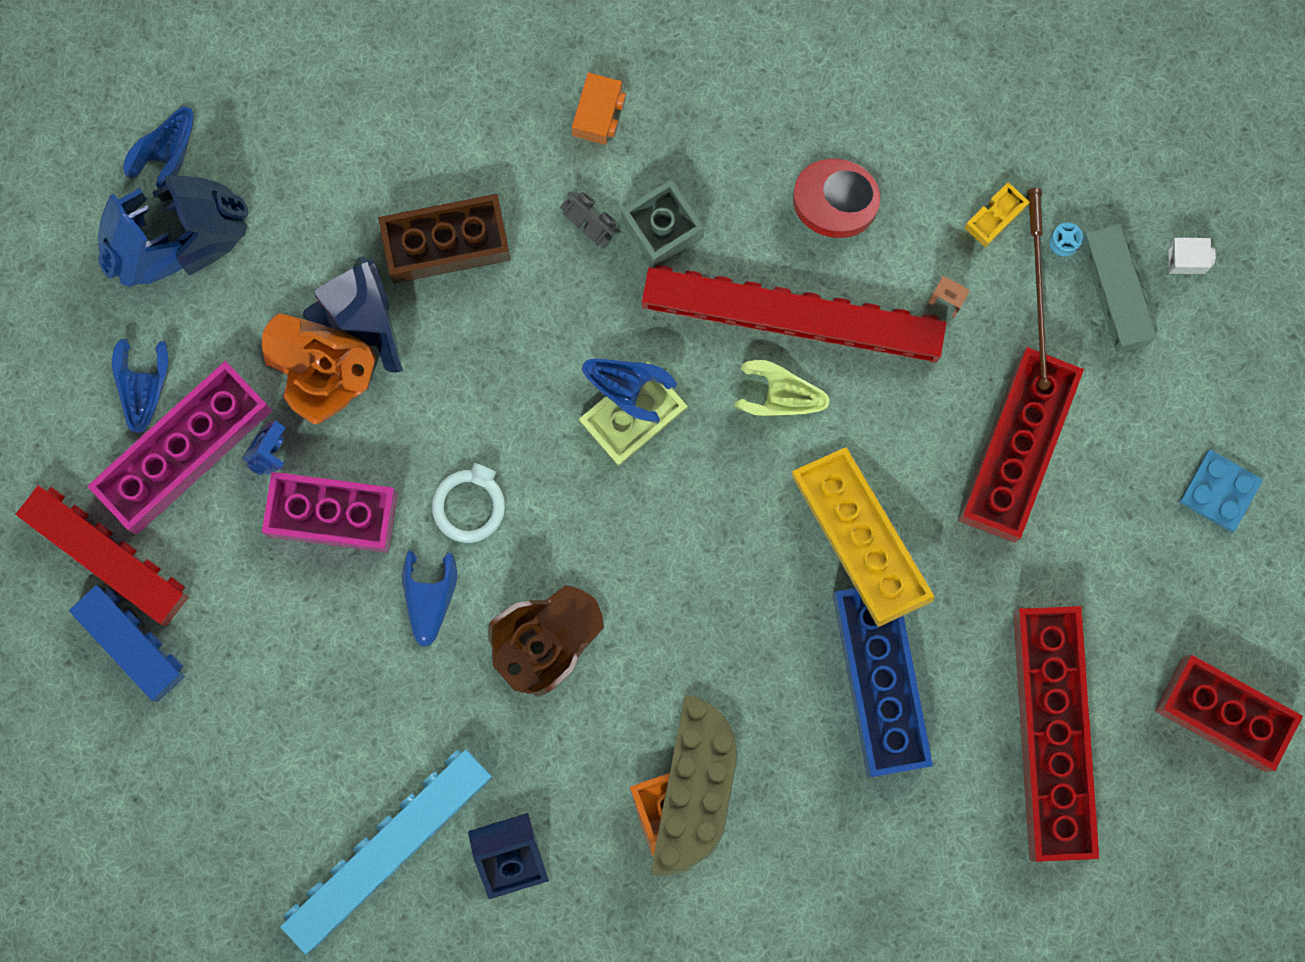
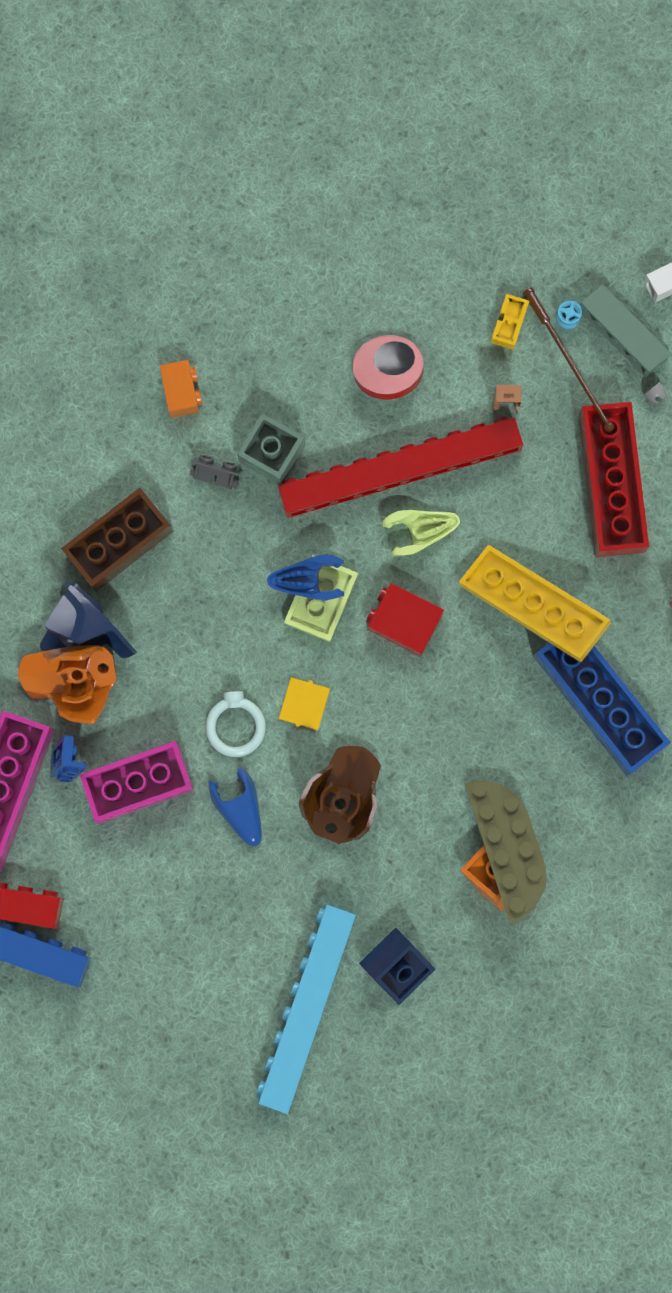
camera: 20 degrees left, 0 degrees up
(556, 519) = (304, 703): none -> yellow piece
(712, 482) = (404, 619): none -> red brick
(1118, 371) = (656, 390): none -> light grey hinge

